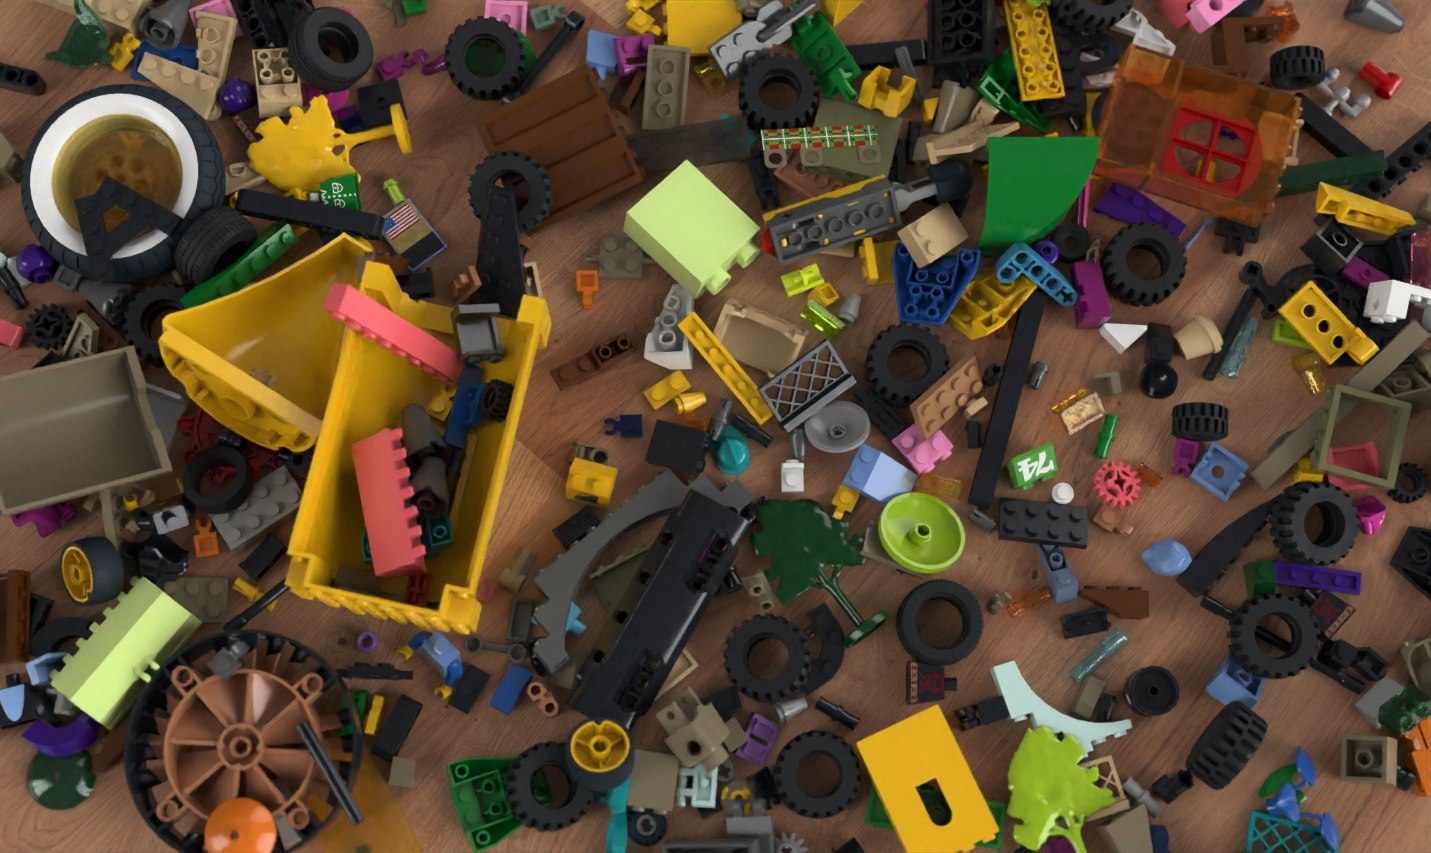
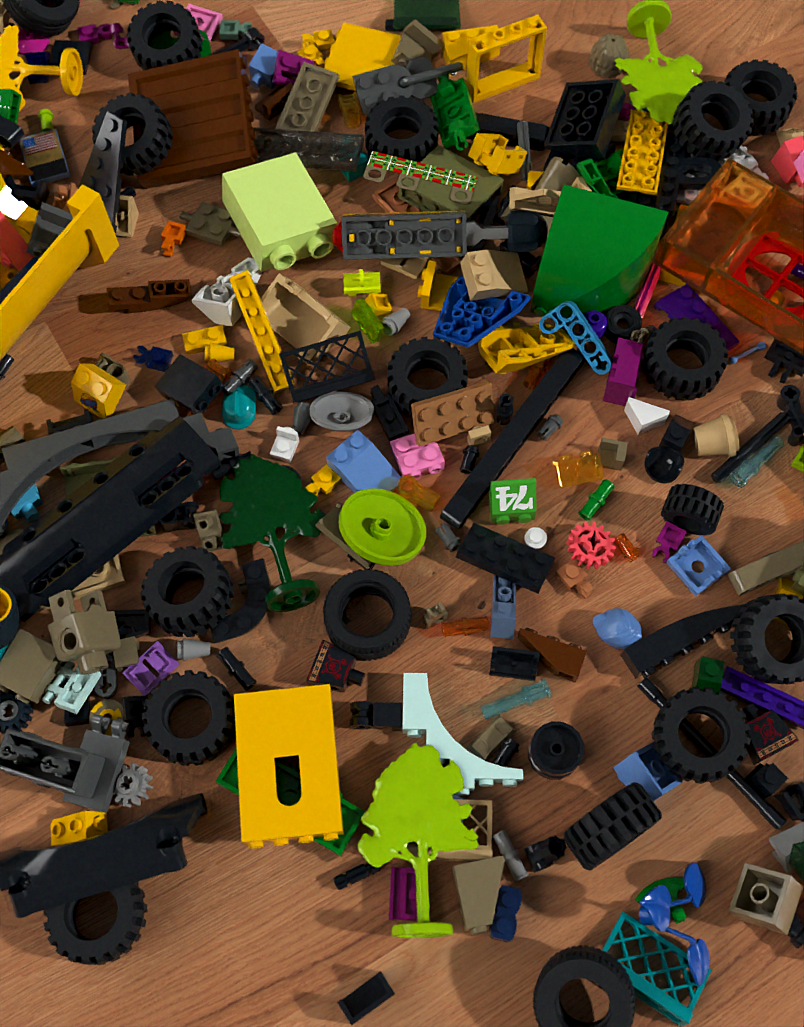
camera: 25 degrees right, 10 degrees down
(763, 179) = (362, 193): black hinge -> none

